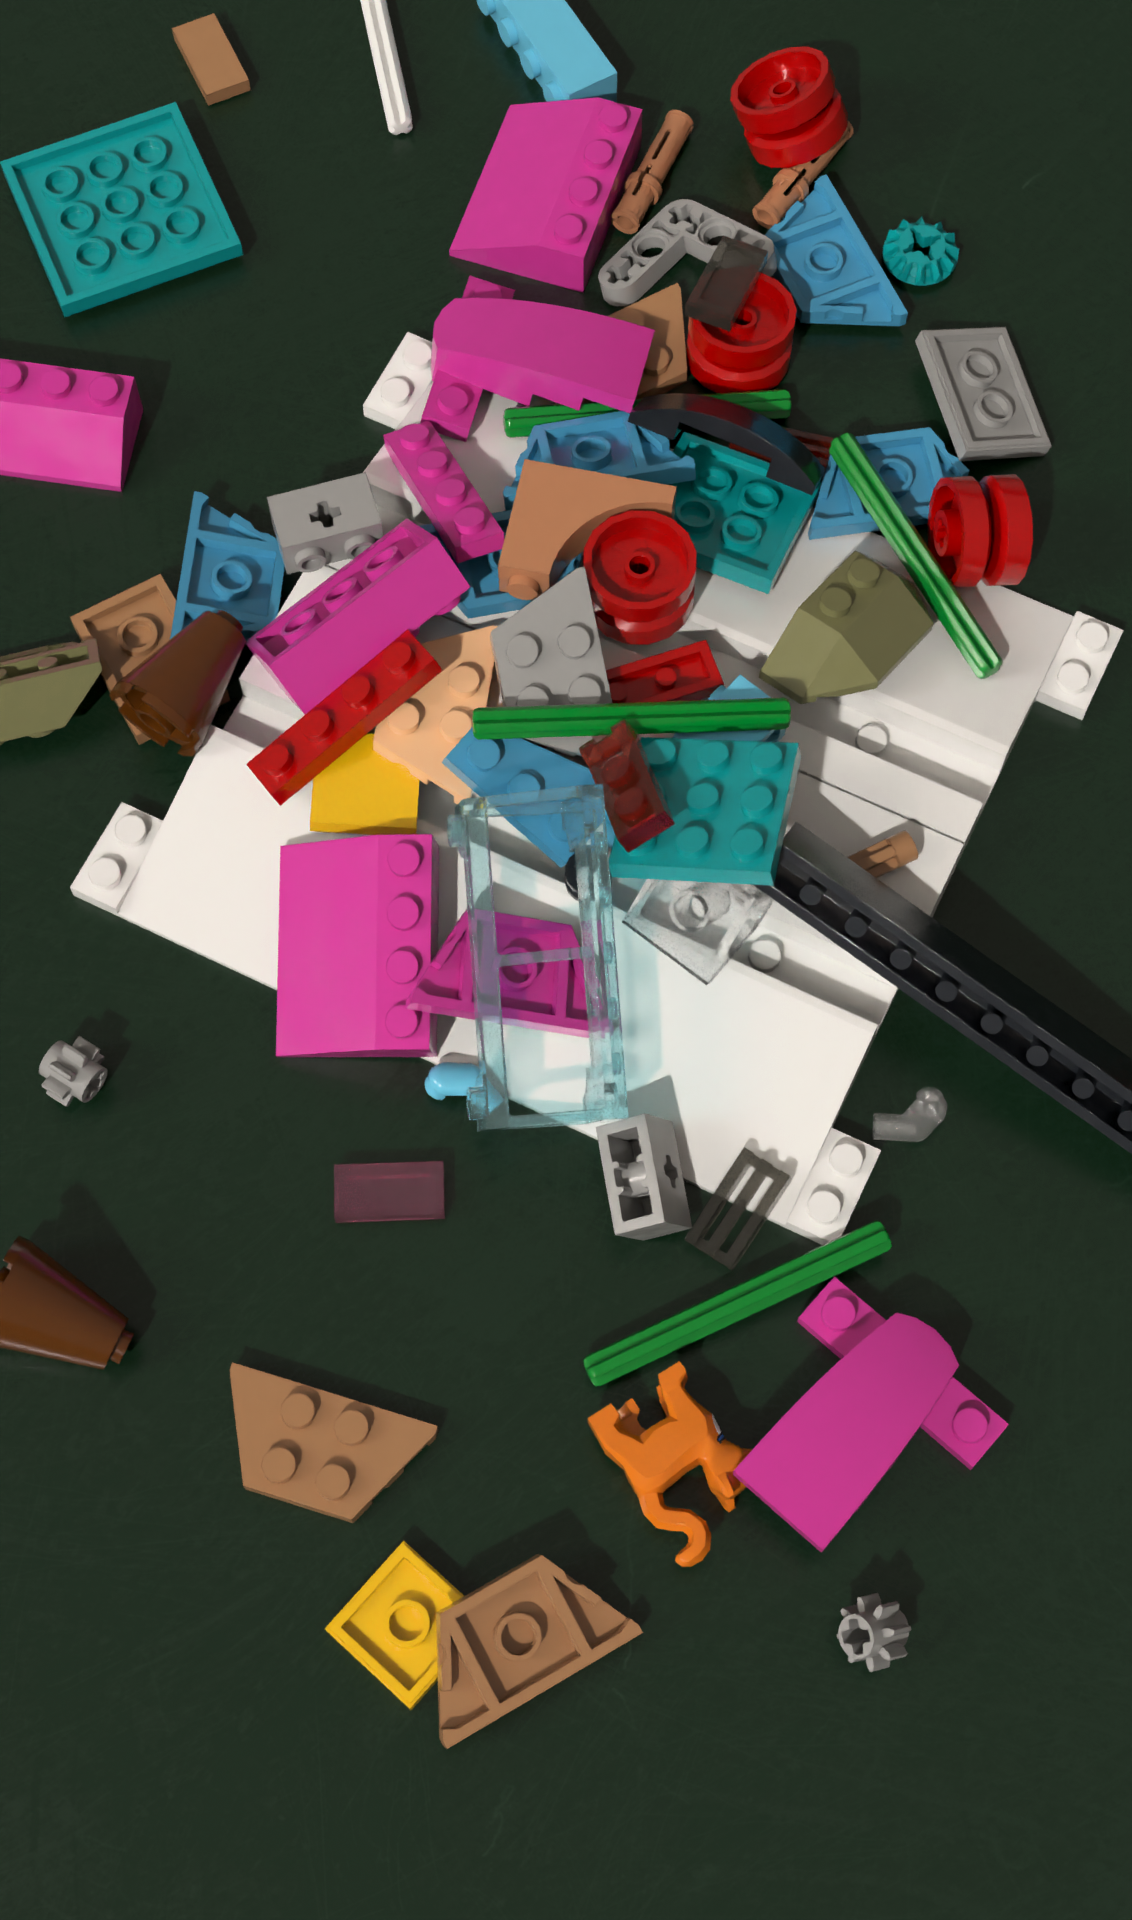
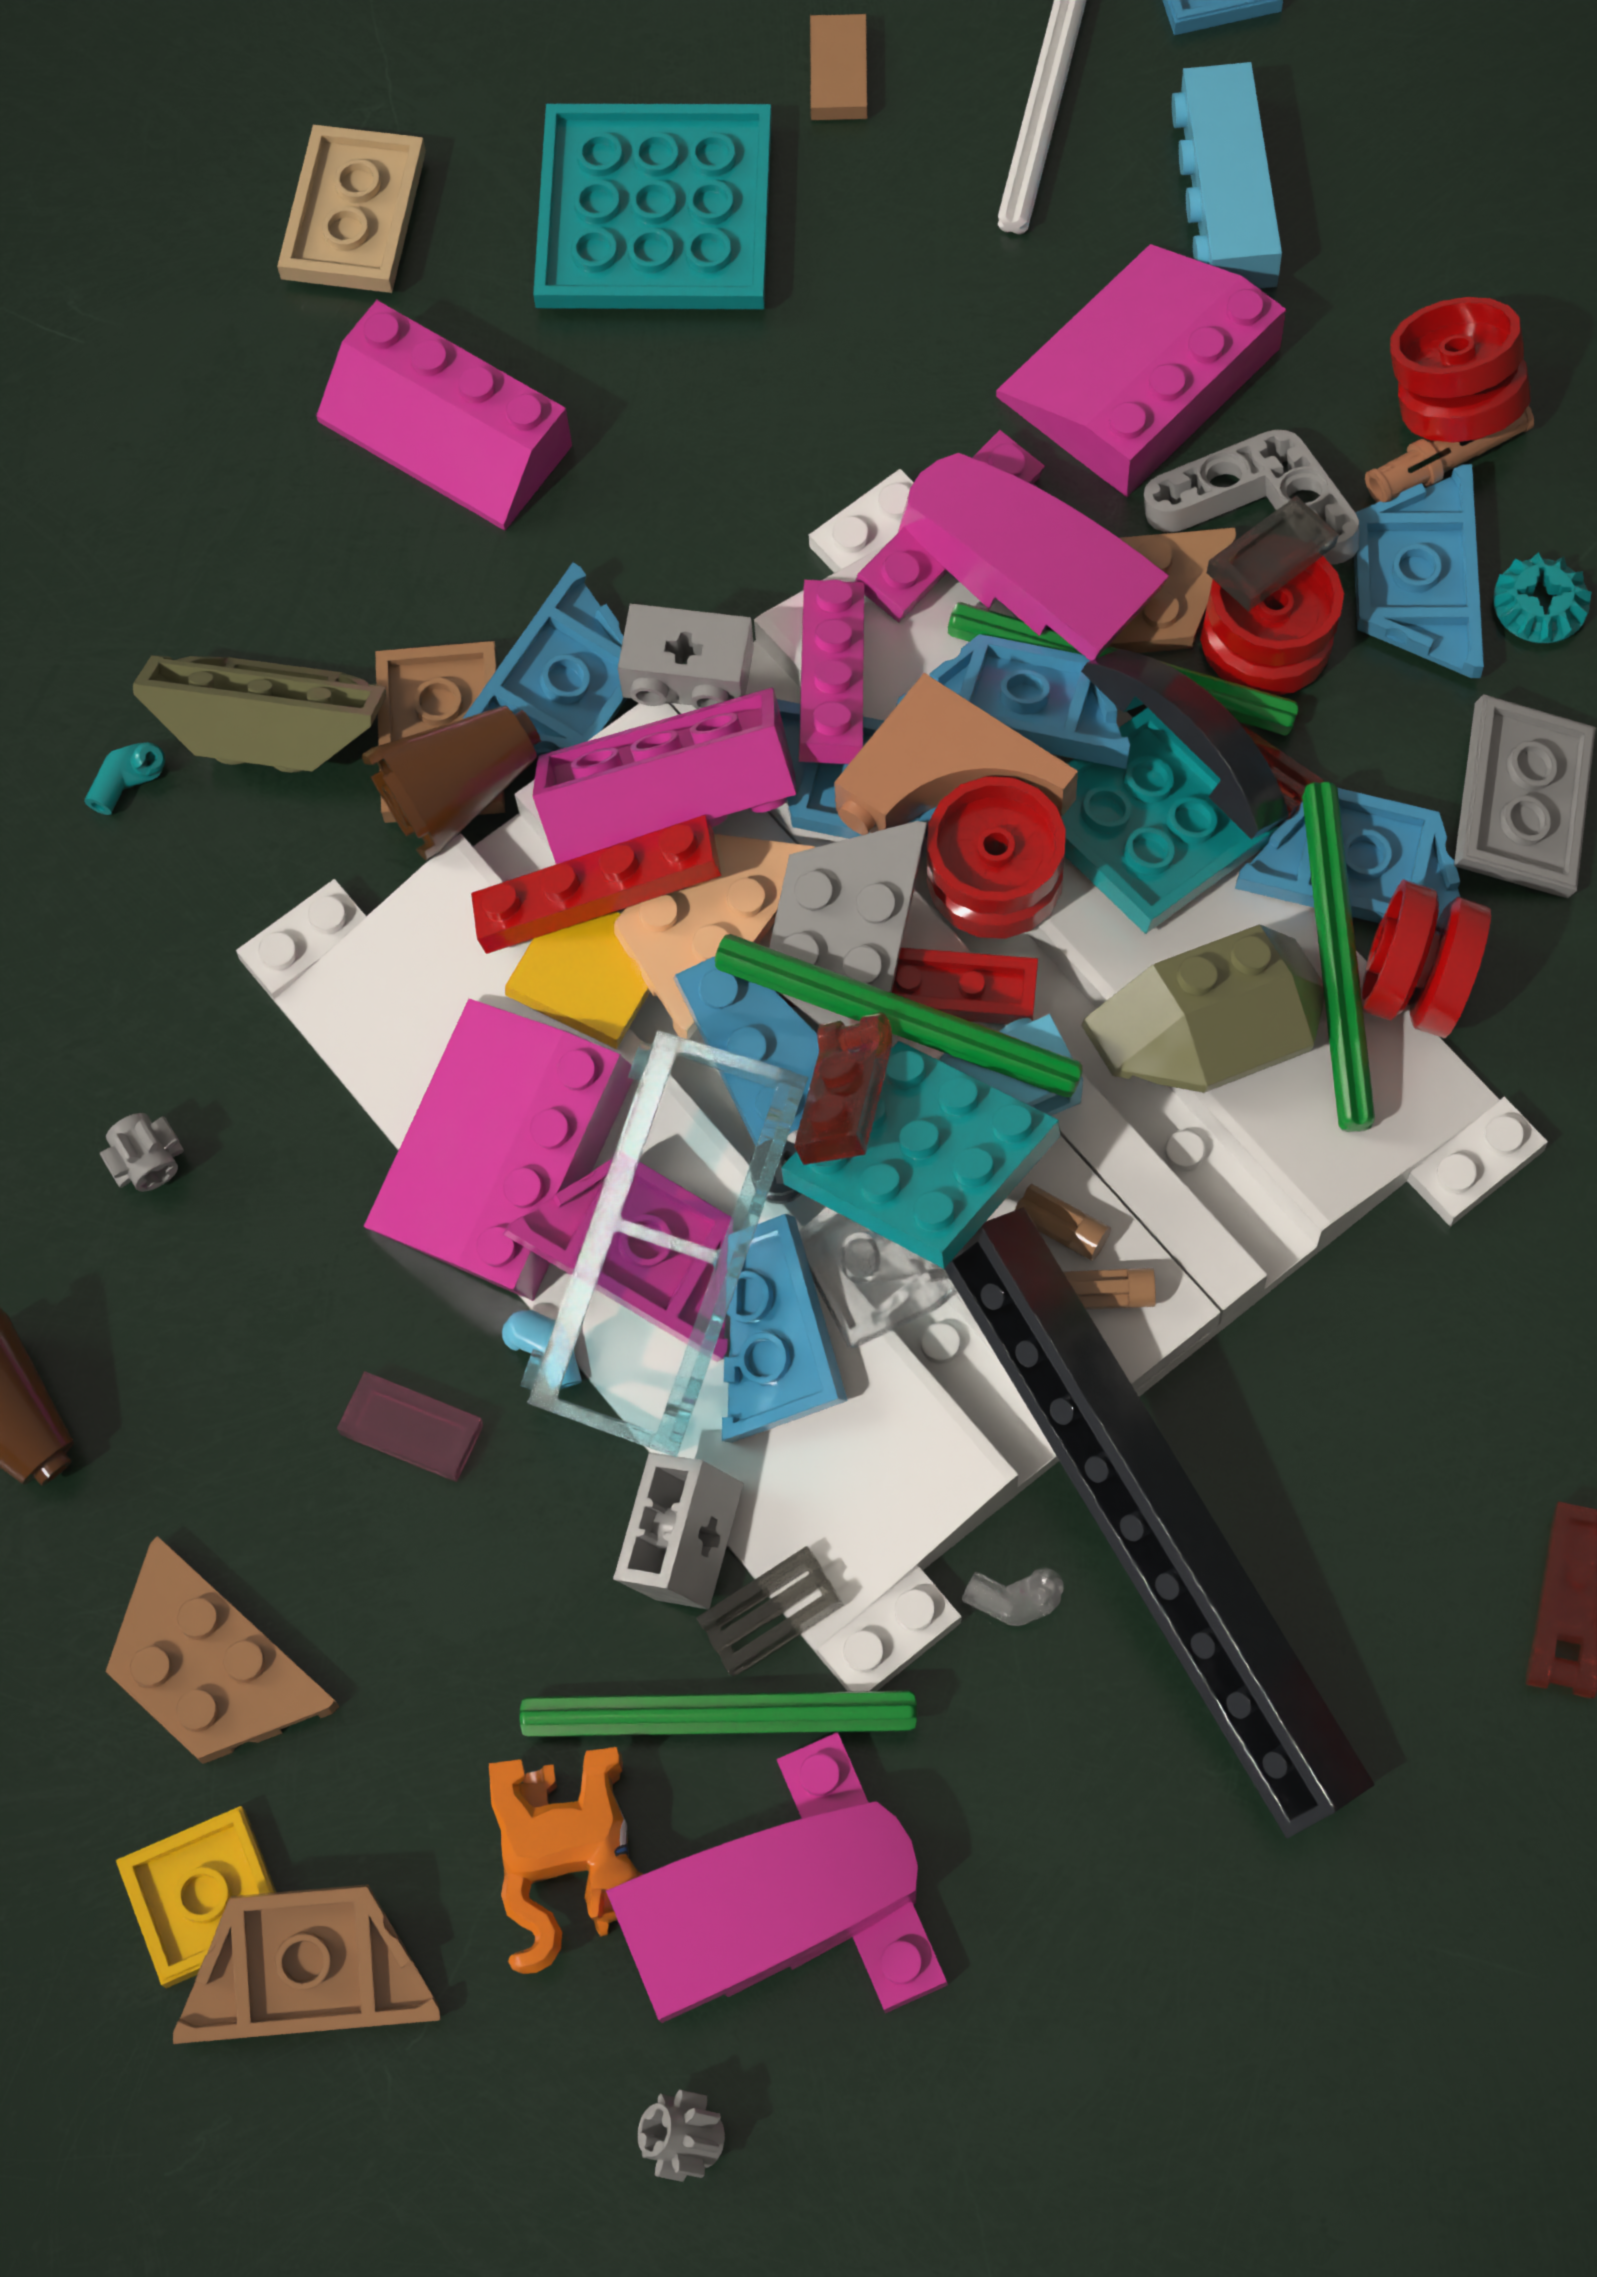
camera: 30 degrees right, 0 degrees up
(644, 185) = (1255, 397): nougat pin -> none
(658, 1008) = (779, 1339): none -> dark azure wing
(827, 825) = (1064, 1222): none -> medium nougat piece

